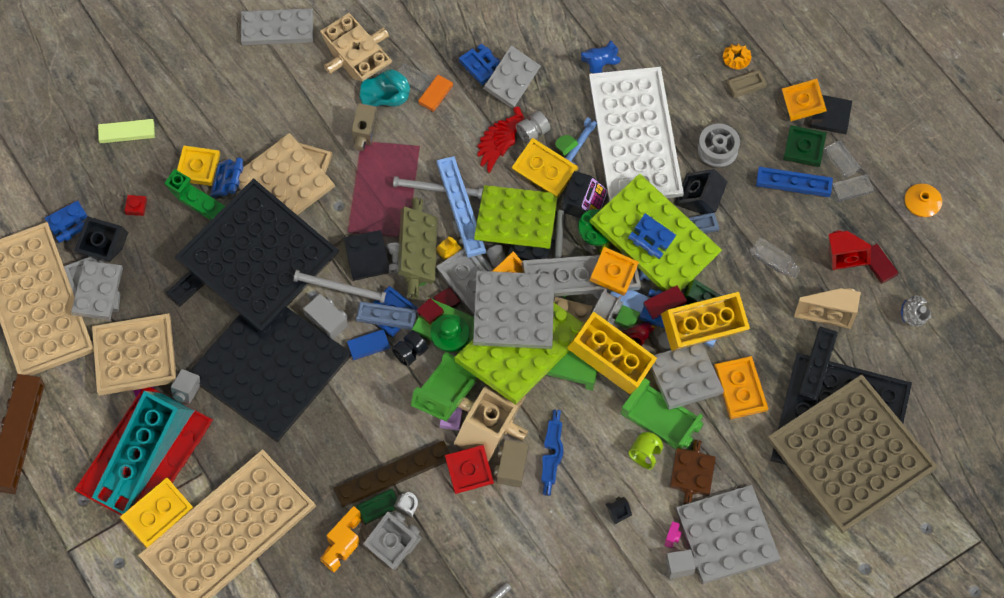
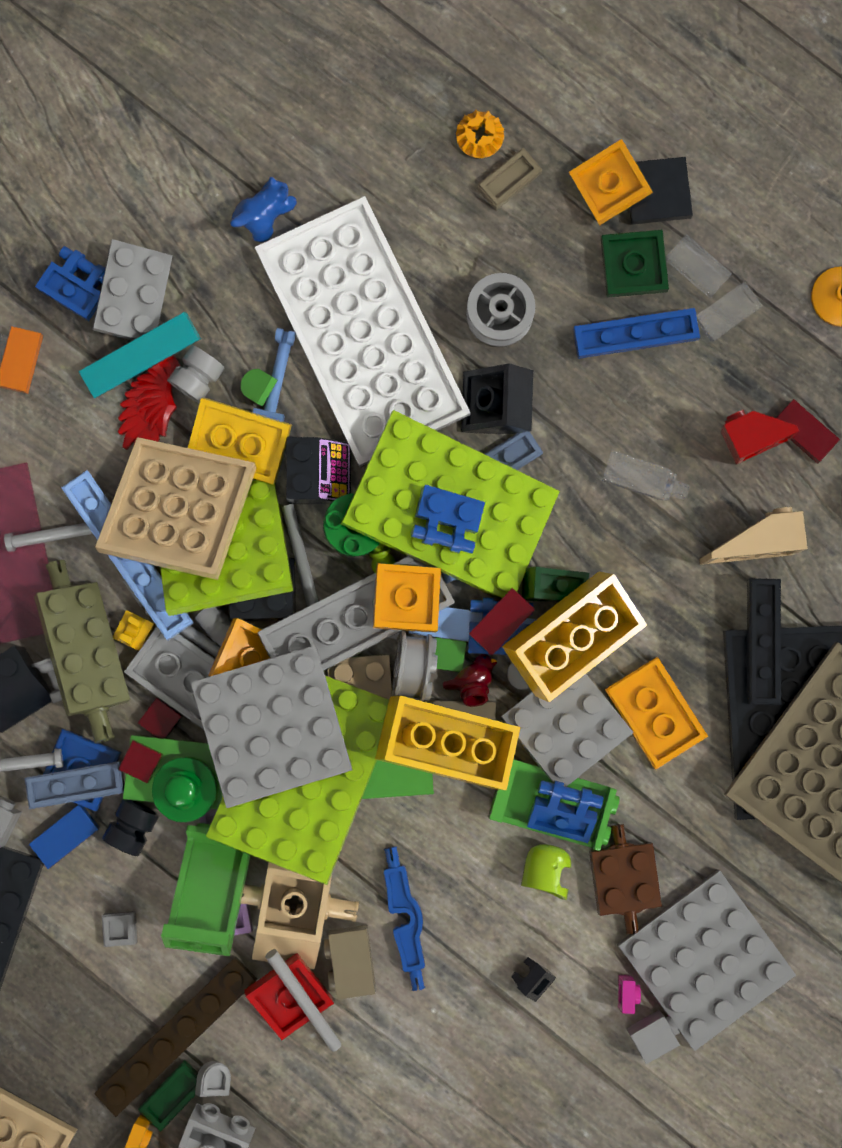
camera: 20 degrees left, 20 degrees up
(381, 404) = (119, 929): none -> light grey tile
(477, 471) = (303, 1000): none -> light grey bar
(498, 186) = (176, 508): none -> tan plate
(505, 108) = (140, 355): none -> teal tile
(665, 423) = (561, 818): none -> blue plate

